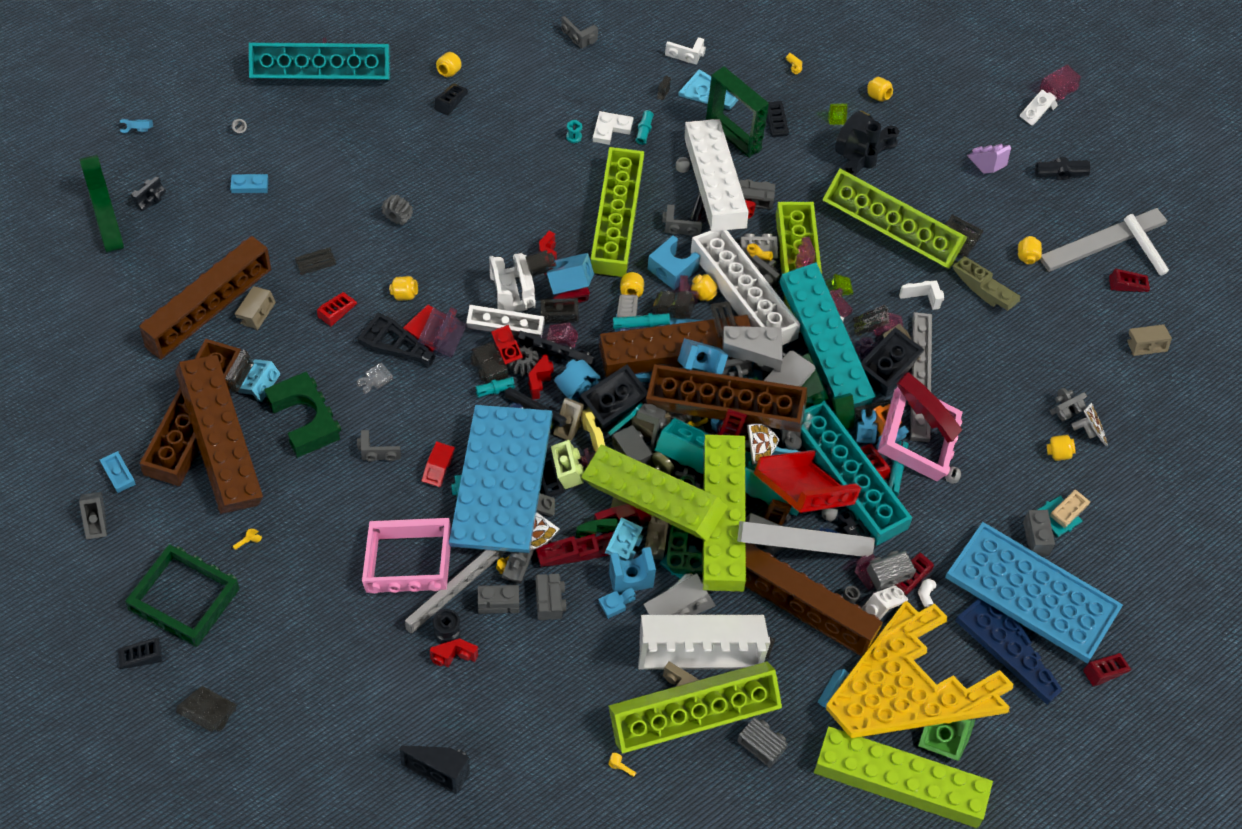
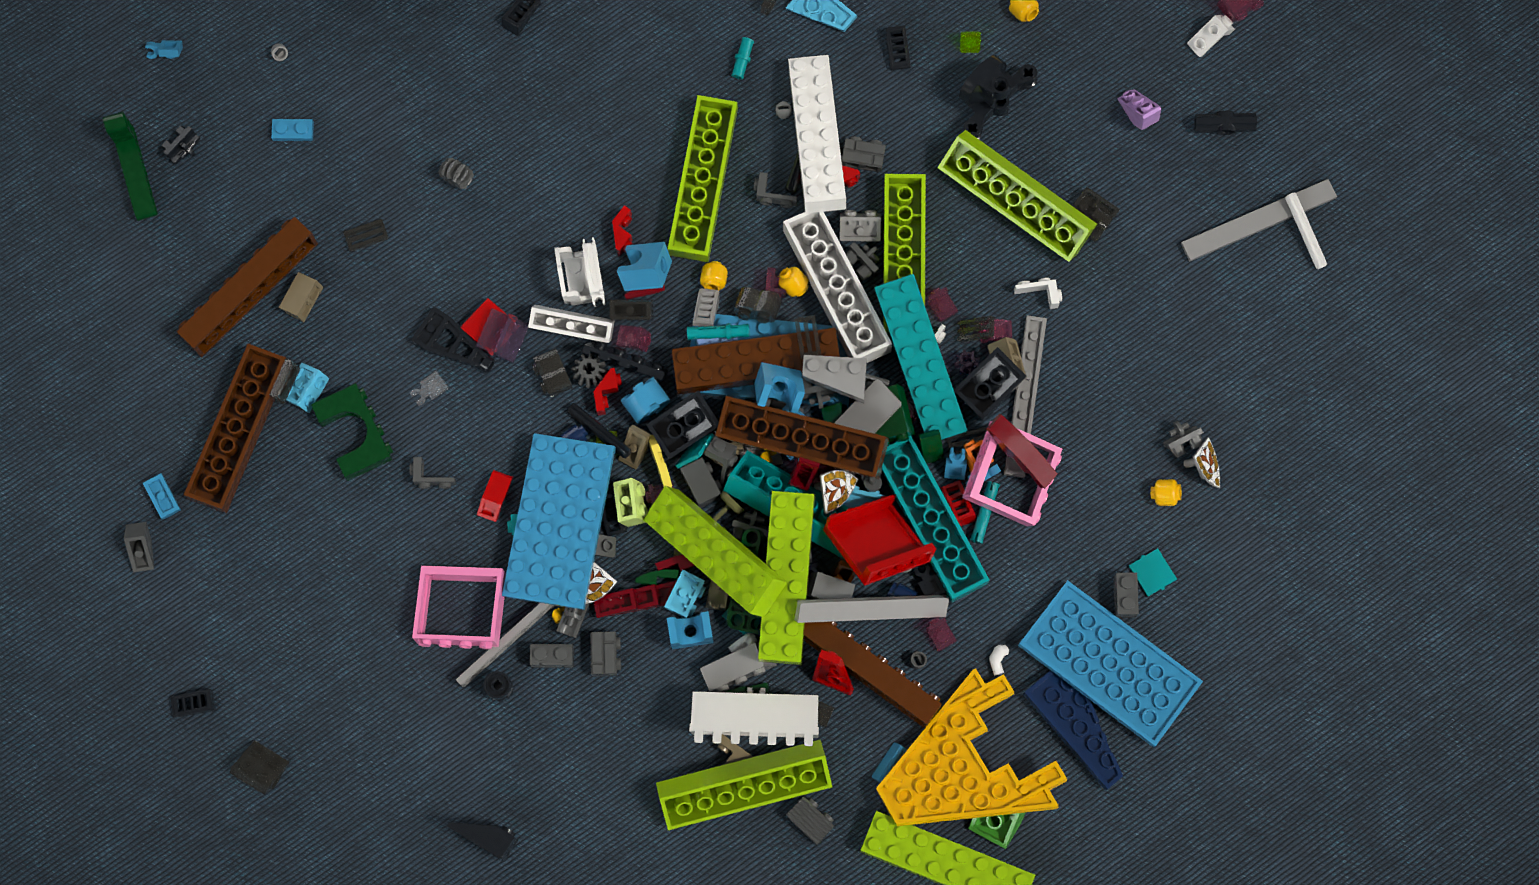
camera: 10 degrees right, 20 degrees up
(169, 624) = (266, 658): dark green window -> none
(218, 434) = (263, 462): reddish brown brick -> none
(250, 536) = (299, 575): yellow hand -> none
(331, 319) = (372, 303): red slope -> none
(404, 288) = (462, 275): yellow head -> none
(445, 653) = (496, 714): red slope -> none
(494, 387) = (558, 401): teal pin -> none
(506, 344) = (571, 357): red slope -> none
(540, 263) = (610, 257): clear smoke brick -> none
(570, 127) = (665, 66): teal bush -> none
(609, 123) = (704, 49): white plate -> none
(614, 603) = (671, 661): dark azure plate -> none
(615, 763) = (662, 834): yellow hand -> none
(669, 268) = (757, 255): dark azure piece -> none
(726, 80) = (846, 53): dark green window -> none
(754, 249) = (856, 236): yellow arm -> none
(773, 601) = (832, 672): none -> red wing
(806, 253) = (907, 245): clear pink bracket -> none
(842, 282) = (950, 277): clear neon green slope -> none
(884, 600) = (952, 670): white bracket -> none
(890, 570) = (961, 637): dark grey brick -> none
(923, 566) = (994, 620): dark red slope -> none
(957, 476) = (1048, 523): light grey hinge -> none
(981, 282) = (1111, 281): olive slope -> none
(1029, 250) = (1169, 237): yellow head -> none
(1069, 508) = (1164, 567): tan plate -> none
(1095, 673) = (1164, 757): dark red slope -> none
(1118, 283) = (1266, 273): dark red slope -> none
(1149, 340) = (1287, 357): dark tan hinge -> none

